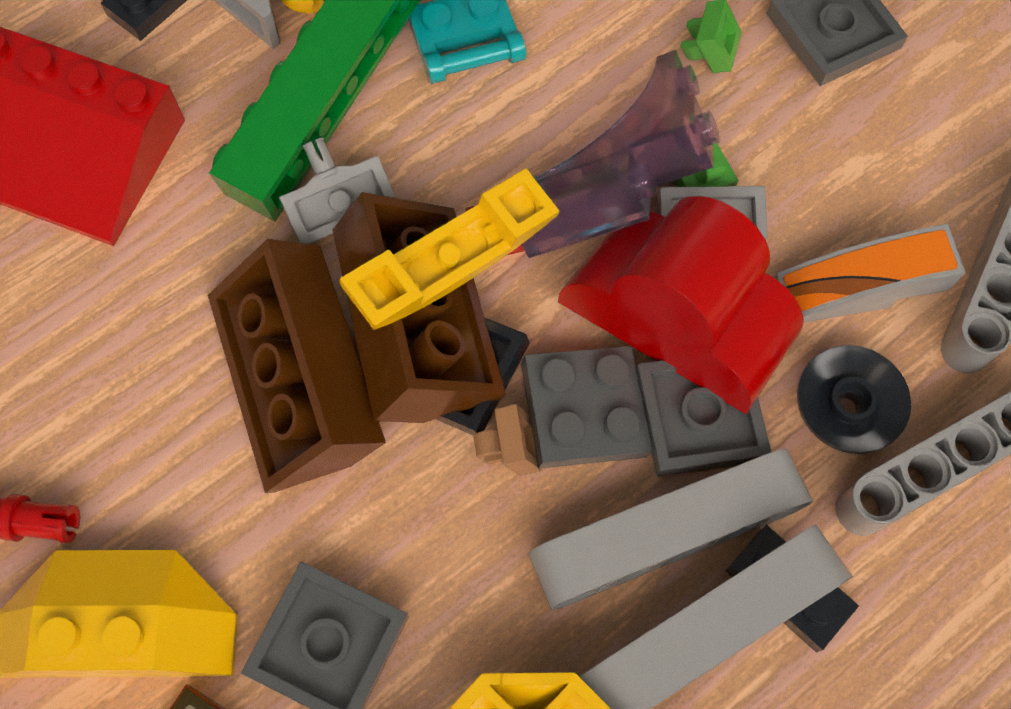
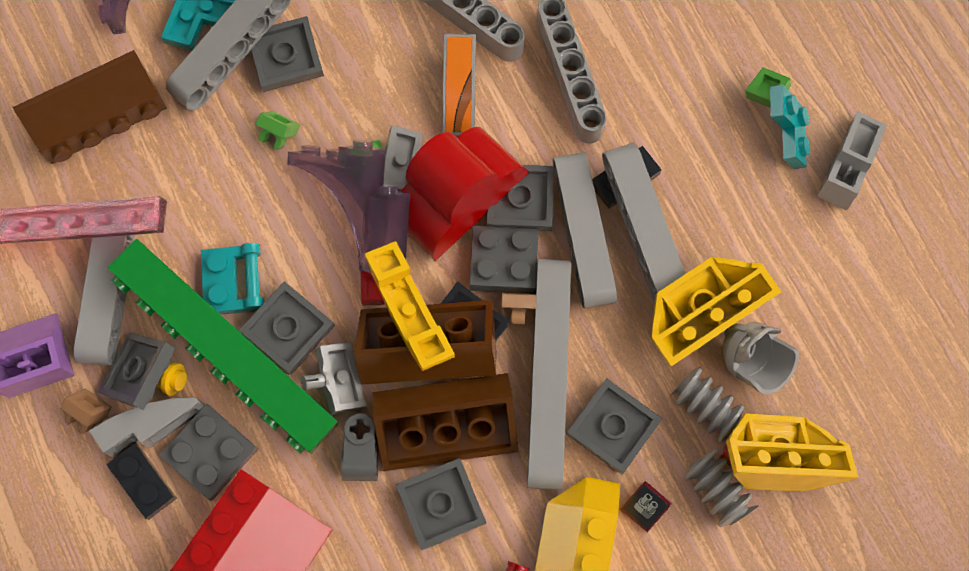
camera: 75 degrees left, 5 degrees up
(159, 386) = (441, 504): none -> dark grey plate
(208, 60) = (209, 452): none -> dark grey plate
(219, 246) = (359, 456): none -> dark grey piece
(400, 514) = (549, 375): none -> light grey beam
(404, 116) = (287, 328): none -> dark grey plate
(870, 383) = (535, 102): black dish -> none

